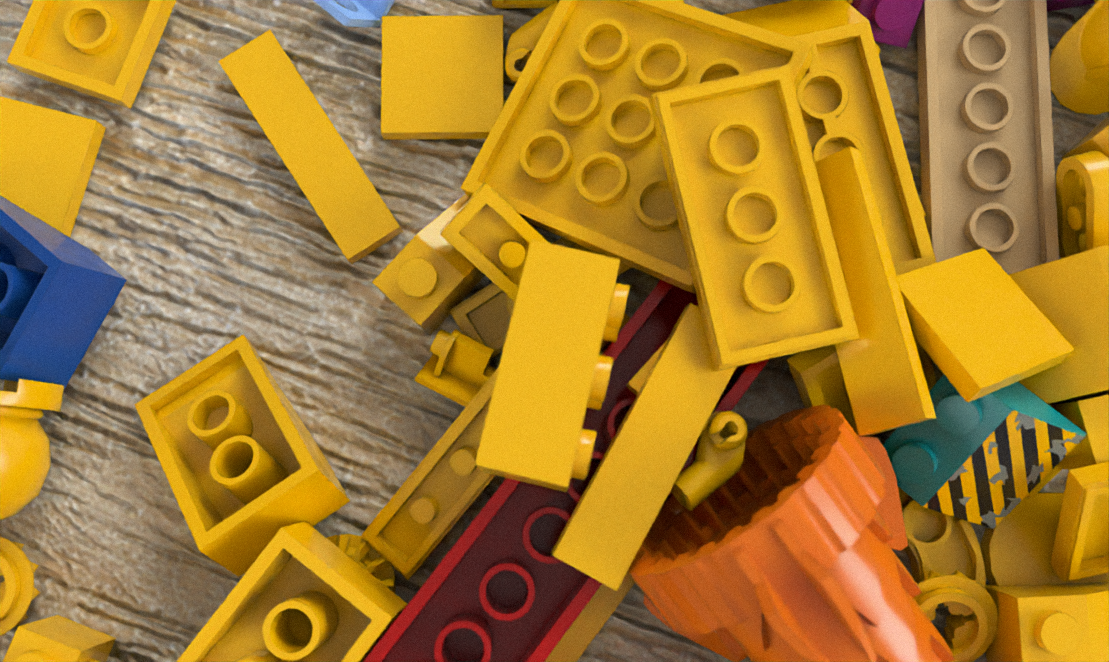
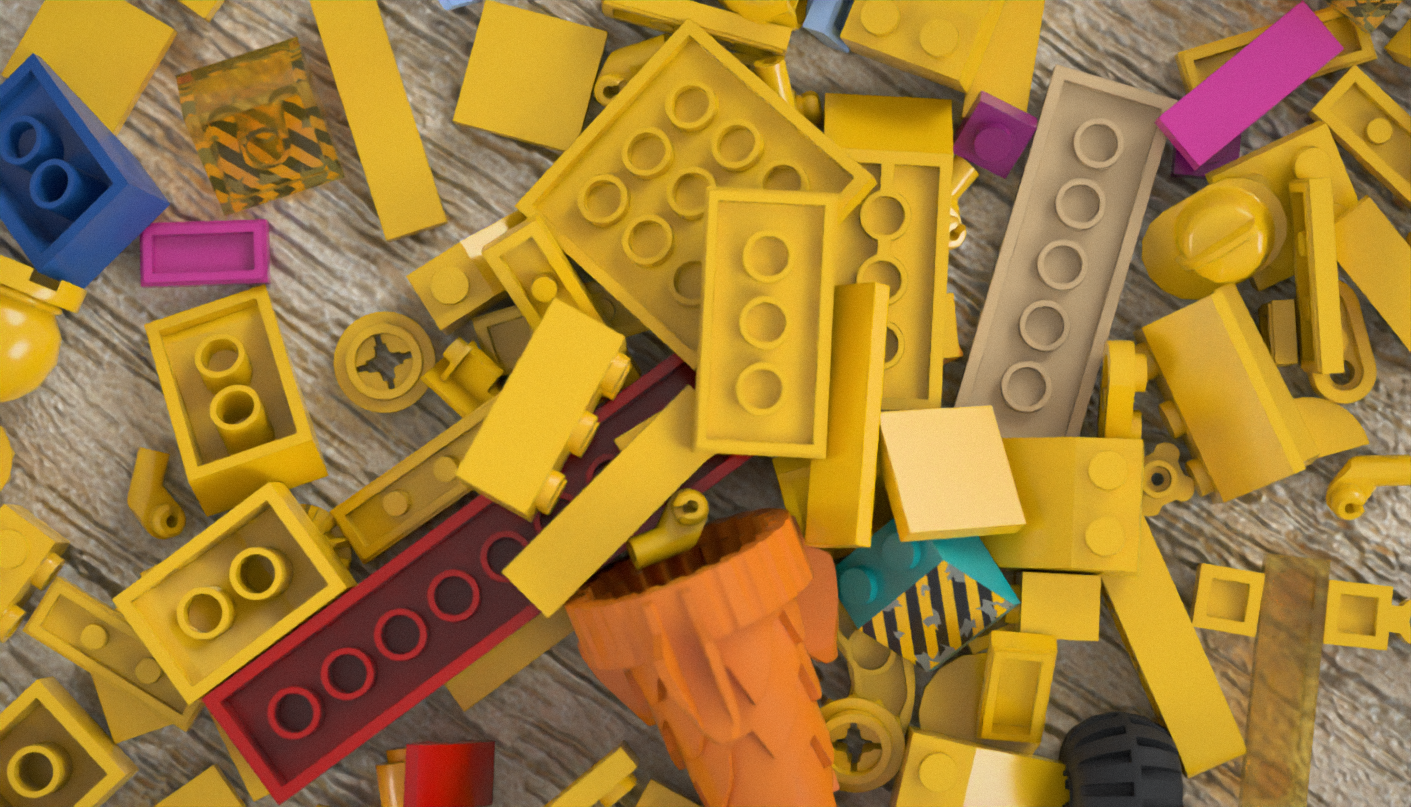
camera: 15 degrees right, 5 degrees up
(178, 321) = (205, 254): none -> dark pink tile
(180, 573) = (149, 498): none -> yellow arm
(197, 187) = (259, 126): none -> clear yellow slope
(348, 369) = (358, 347): none -> yellow gear

